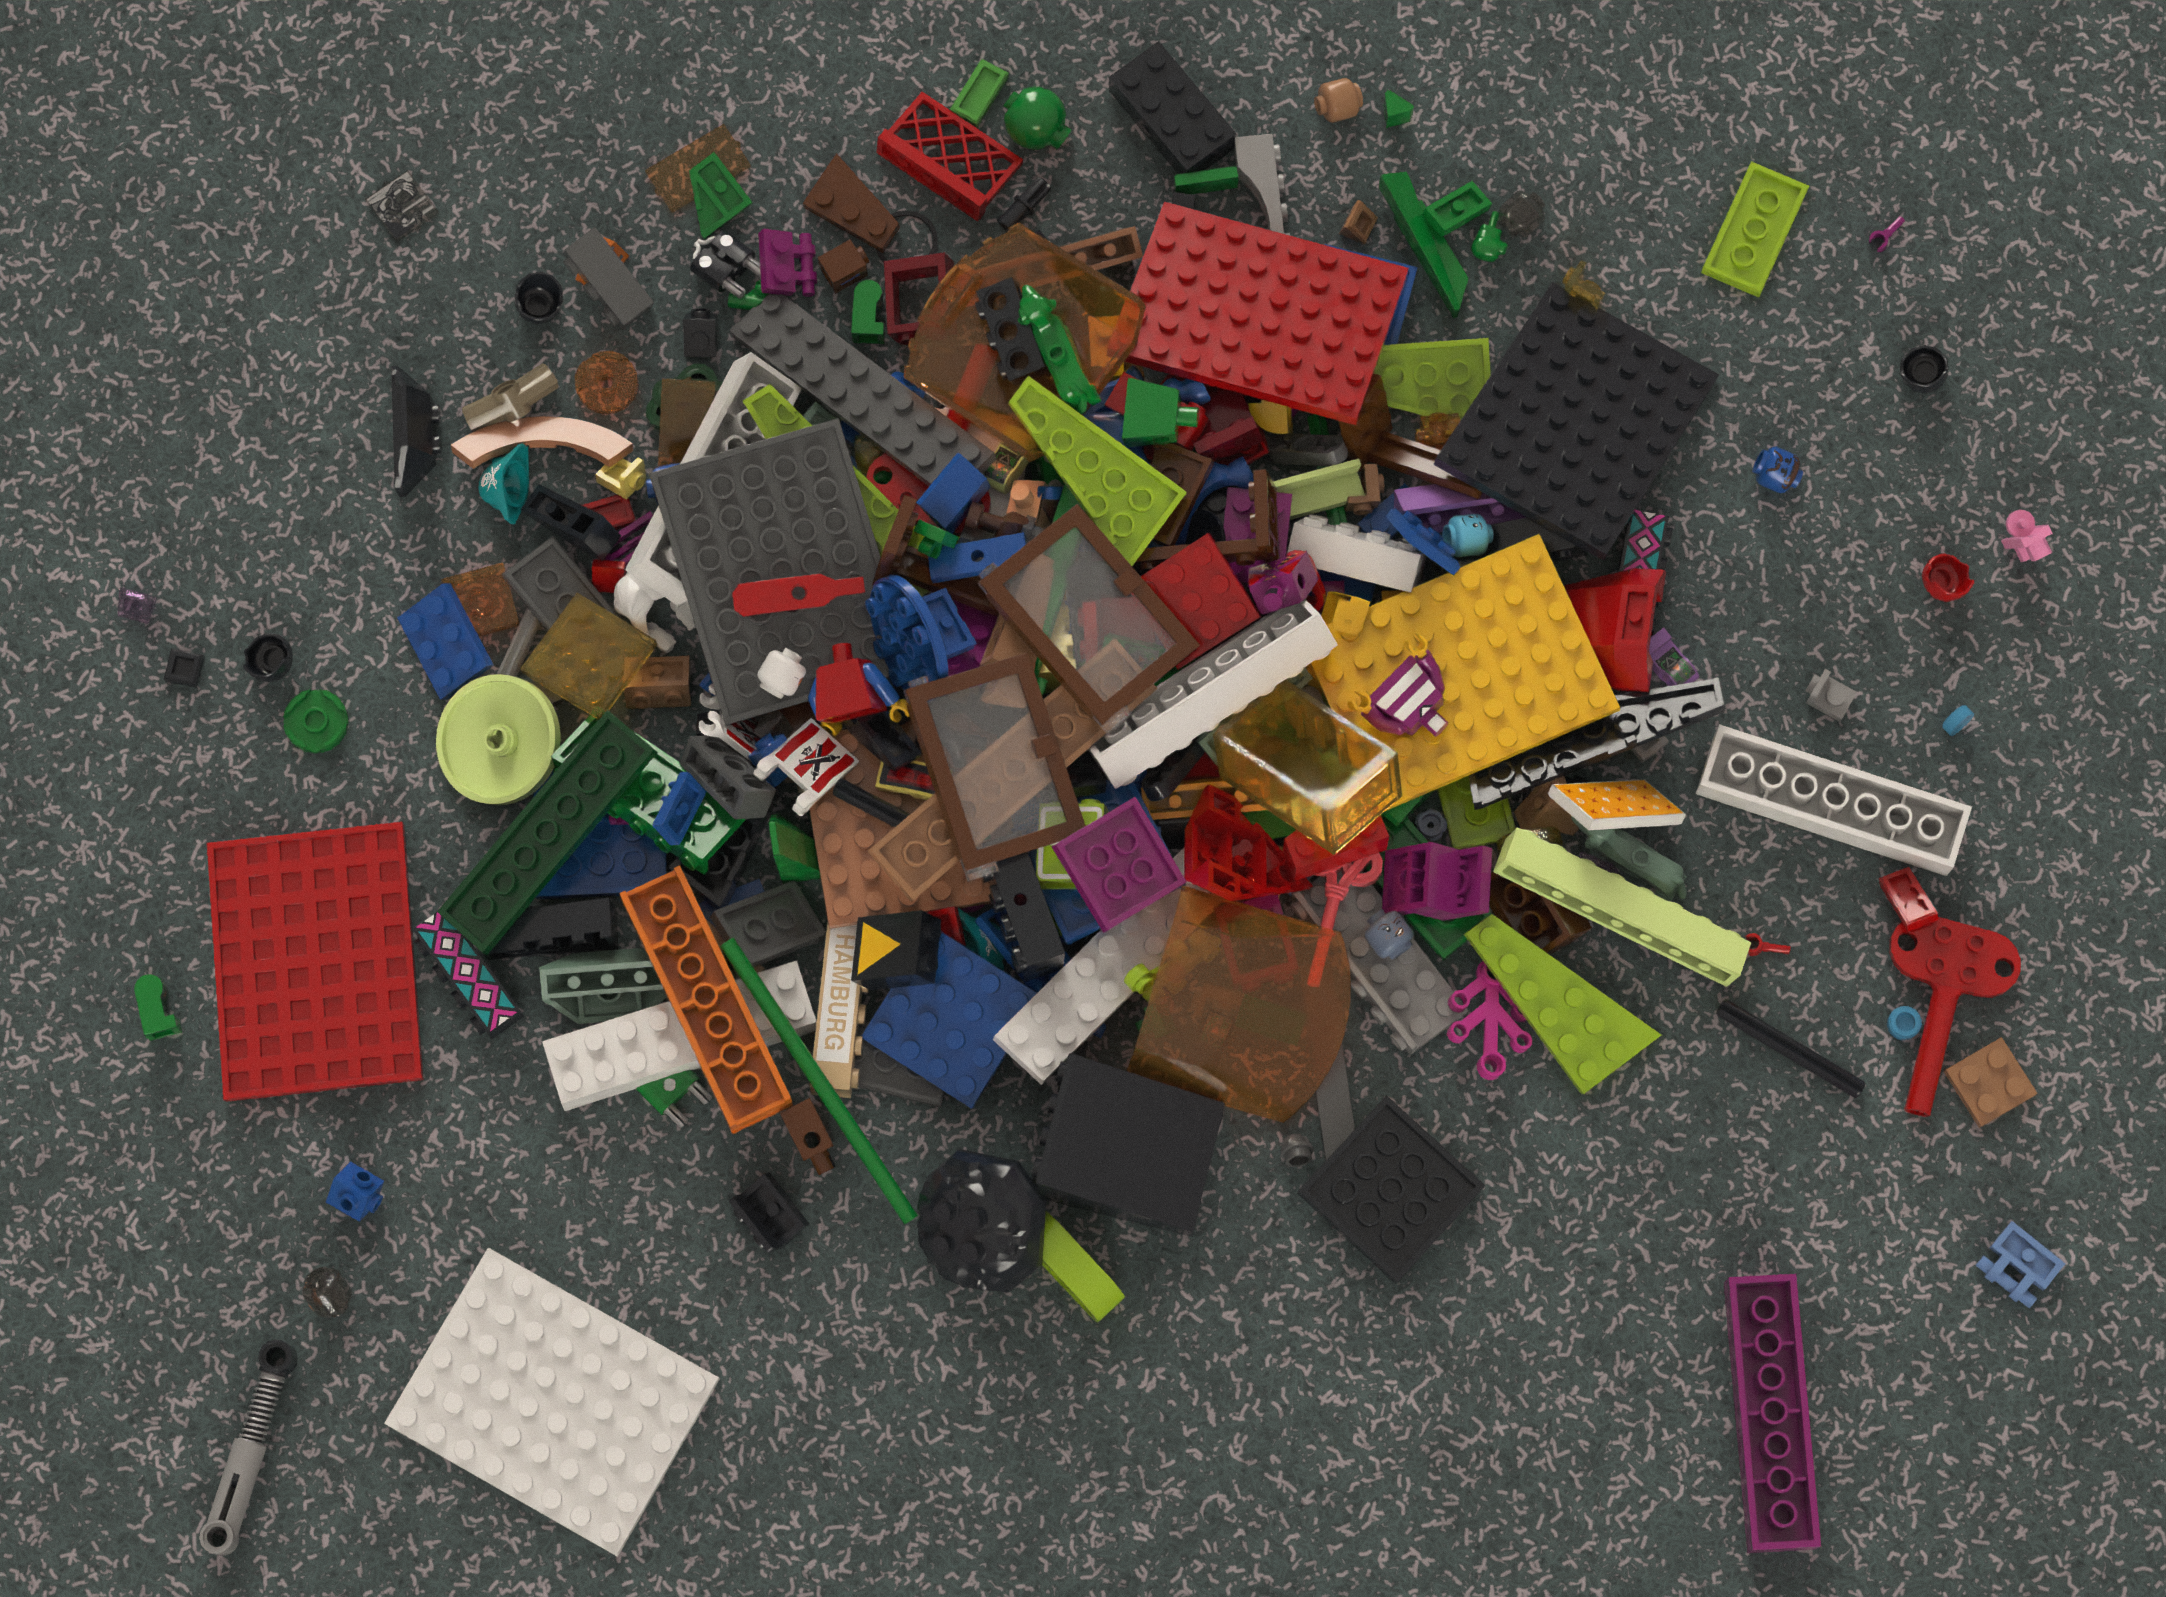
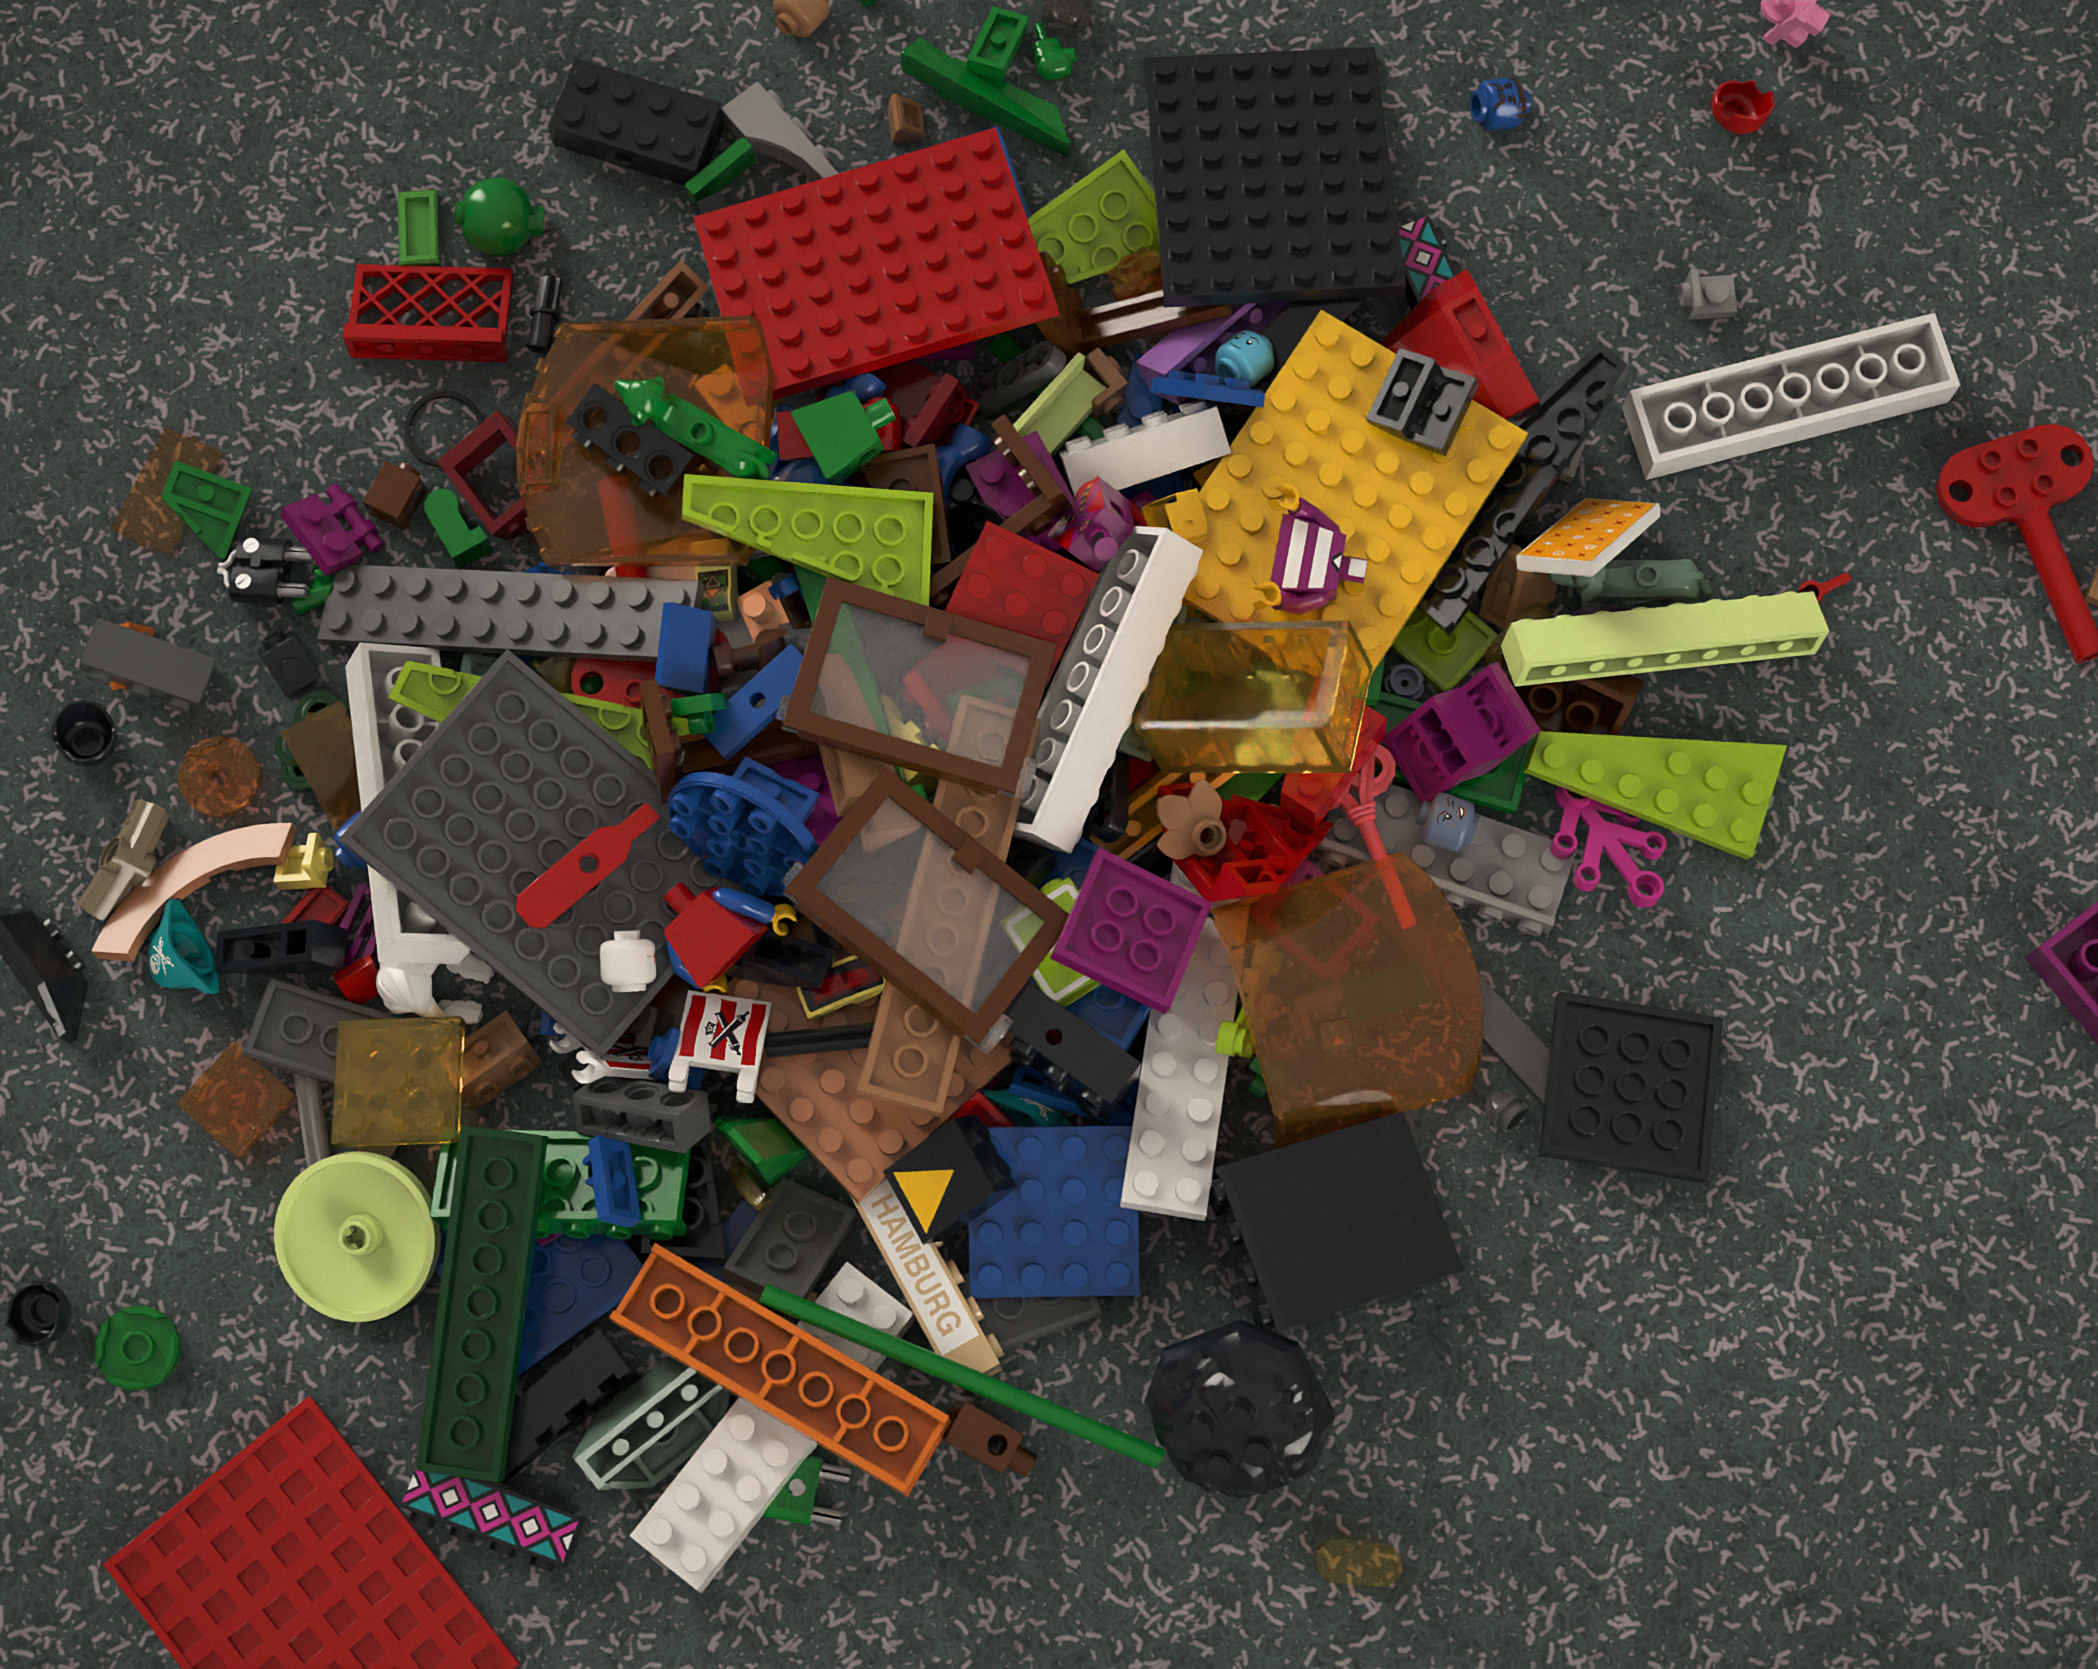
camera: 35 degrees left, 0 degrees up
(445, 641) = (226, 1167): blue plate -> none
(767, 872) = (750, 1186): none -> clear yellow tile
(768, 1213) = (999, 1555): black bracket -> none
(851, 206) = (361, 428): reddish brown wing -> none
(996, 1375) = (1359, 1563): none -> clear yellow tile
(1078, 1271) = (1376, 1394): lime plant -> none
(1209, 816) = (1186, 819): none -> medium nougat plate
(1272, 417) = (957, 363): yellow brick -> none
(1560, 640) = (1422, 401): none -> black slope
(1584, 289) = (1182, 44): clear yellow bracket -> none
(1669, 662) = (1540, 364): leg -> none
(1791, 1048) = (1921, 674): black axle -> none
(1904, 1023) = (2012, 575): dark azure tile -> none
(1908, 899) = (1932, 447): red plate -> none
(1957, 720) = (1850, 240): dark azure tile -> none

